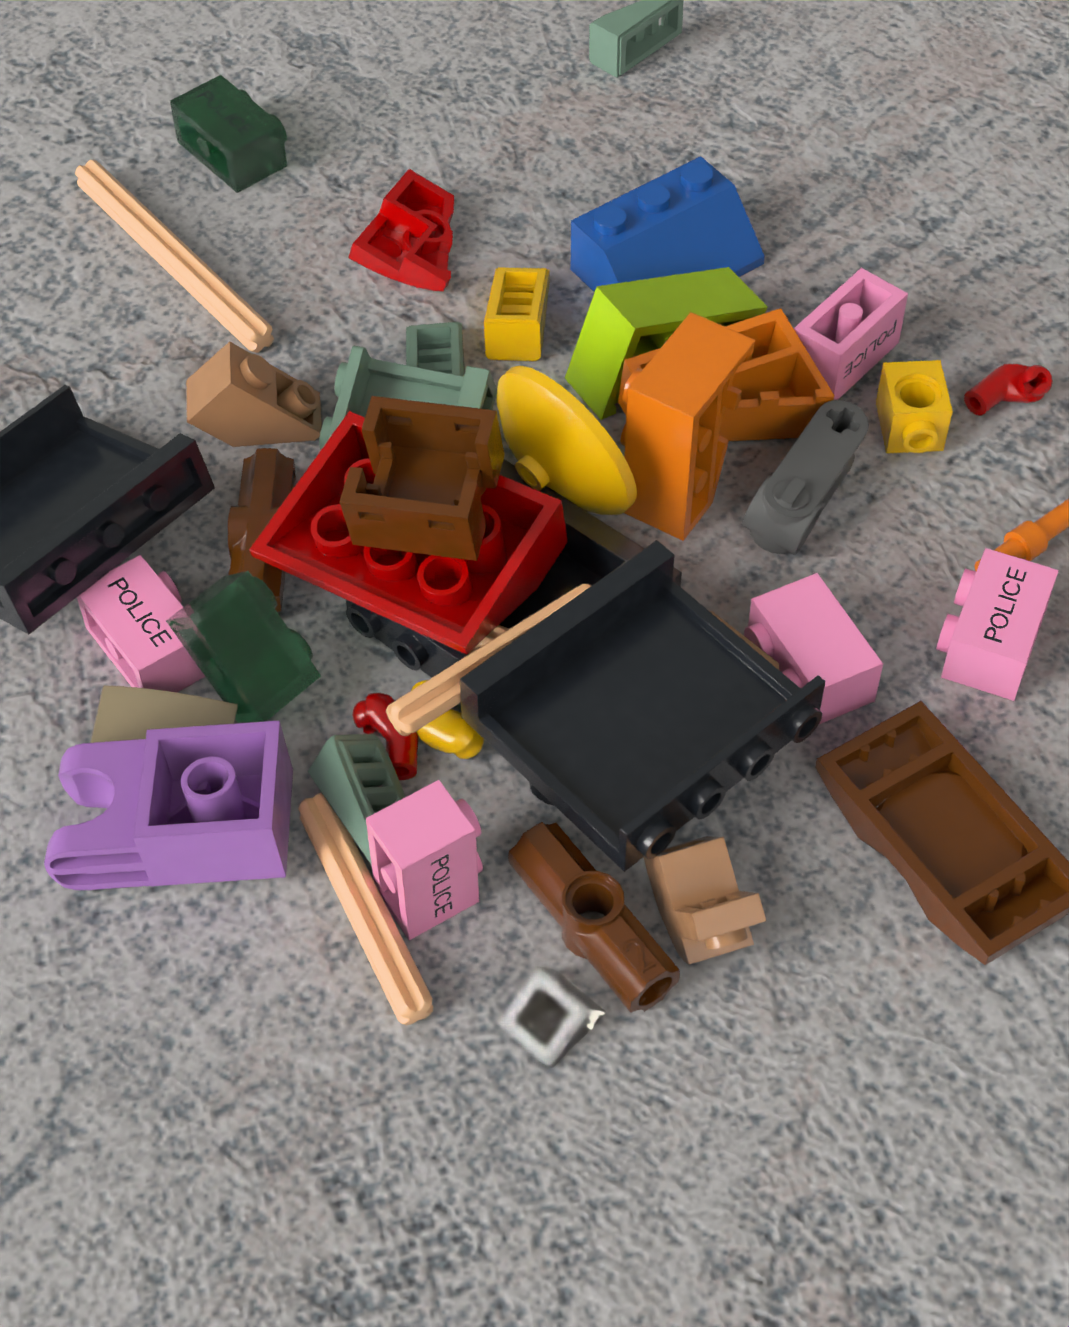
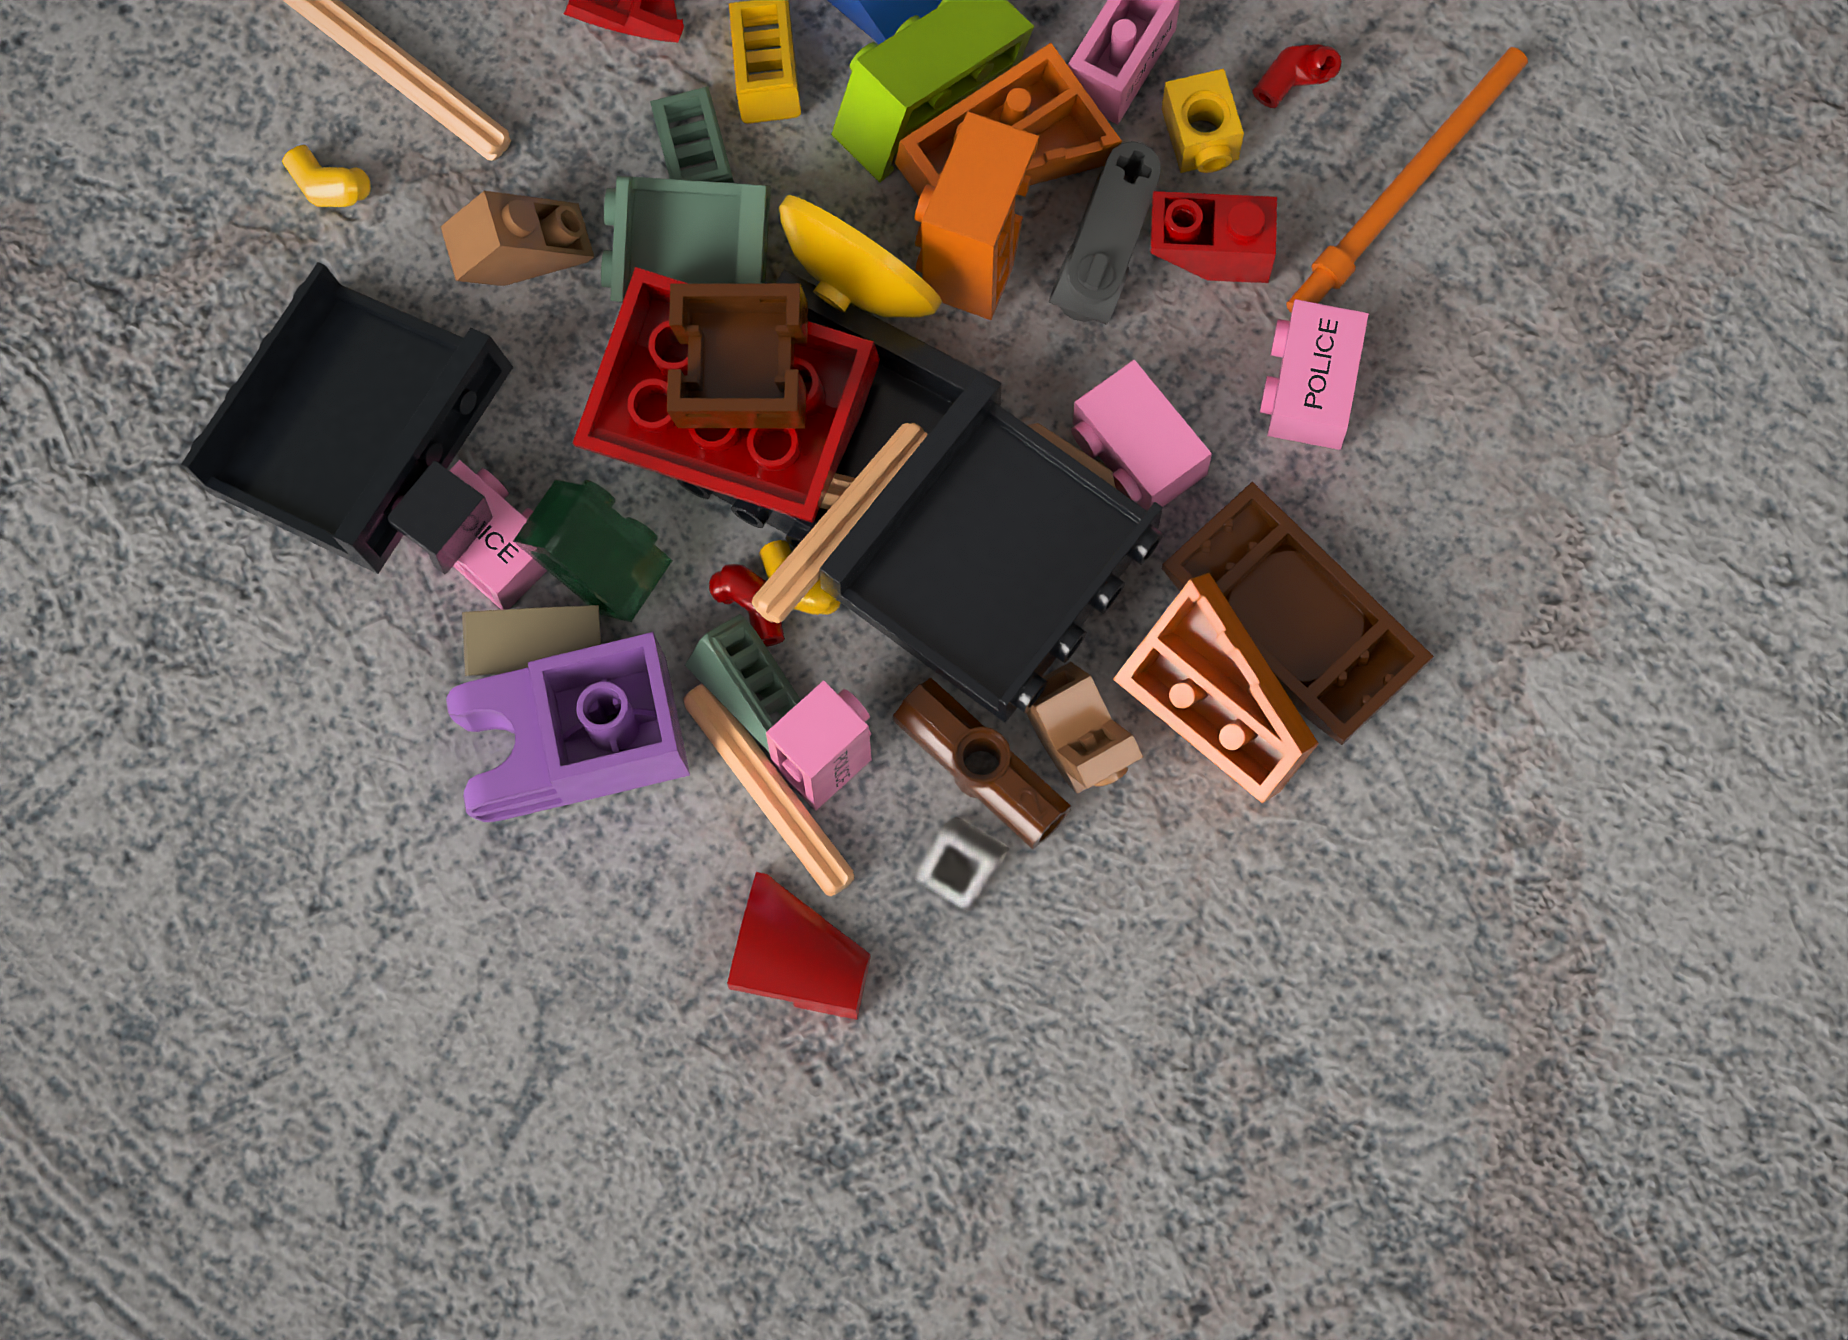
camera: 10 degrees left, 20 degrees up
(100, 344) = (325, 184): none -> yellow arm
(104, 585) = (441, 515): none -> black panel
(263, 488) = (563, 390): reddish brown piece -> none
(350, 1075) = (796, 954): none -> red slope
(857, 879) = (1218, 691): none -> orange wedge
(915, 491) = (1216, 234): none -> red slope

